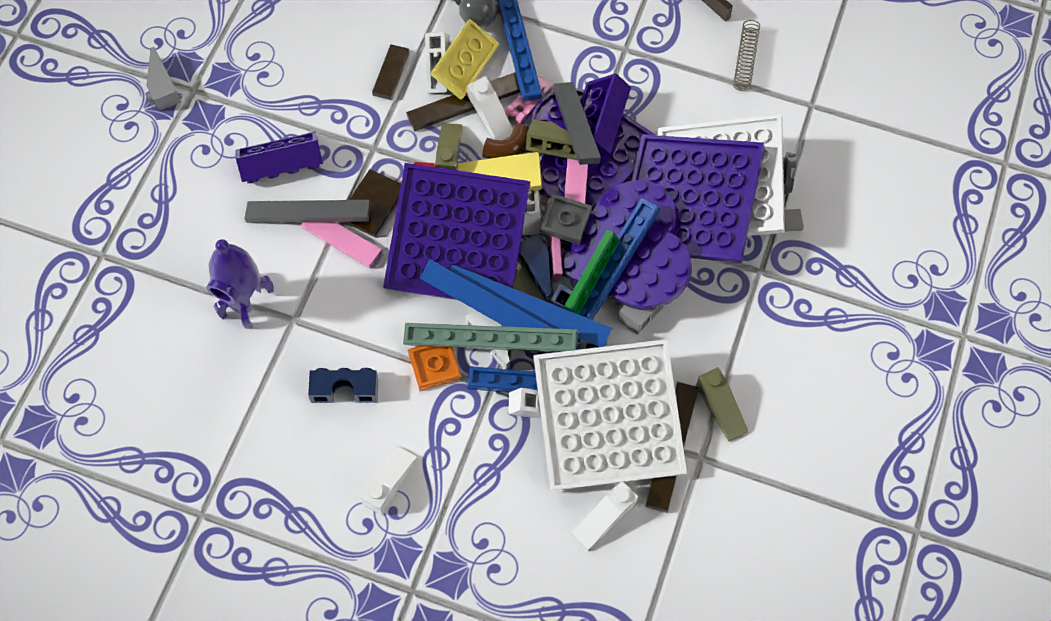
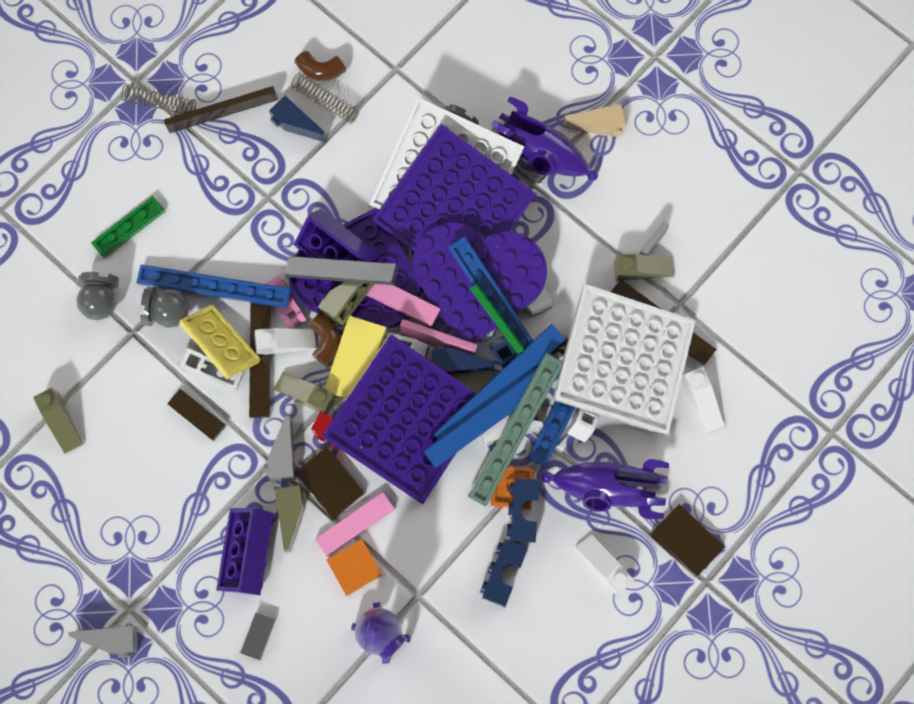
camera: 65 degrees left, 10 degrees up
(205, 198) = (258, 636): none -> dark grey tile
(299, 253) = (354, 567): none -> orange tile
(308, 211) = (316, 545): dark grey tile -> none
(327, 179) = (290, 510): none -> olive slope
(382, 151) = (281, 457): none -> light grey slope
(394, 380) = (520, 528): none -> dark blue arch
(448, 555) = (687, 540): none -> dark brown tile
(471, 442) = (606, 485): none -> dark purple piece
(565, 219) = (428, 319): dark grey tile -> none
(711, 34) = (294, 120): none -> dark blue slope
(757, 403) = (655, 238): none -> light grey tile
(771, 38) = (319, 70): none -> reddish brown cylinder
(799, 256) = (544, 146): none -> dark purple piece
(860, 306) = (600, 121): none -> tan slope

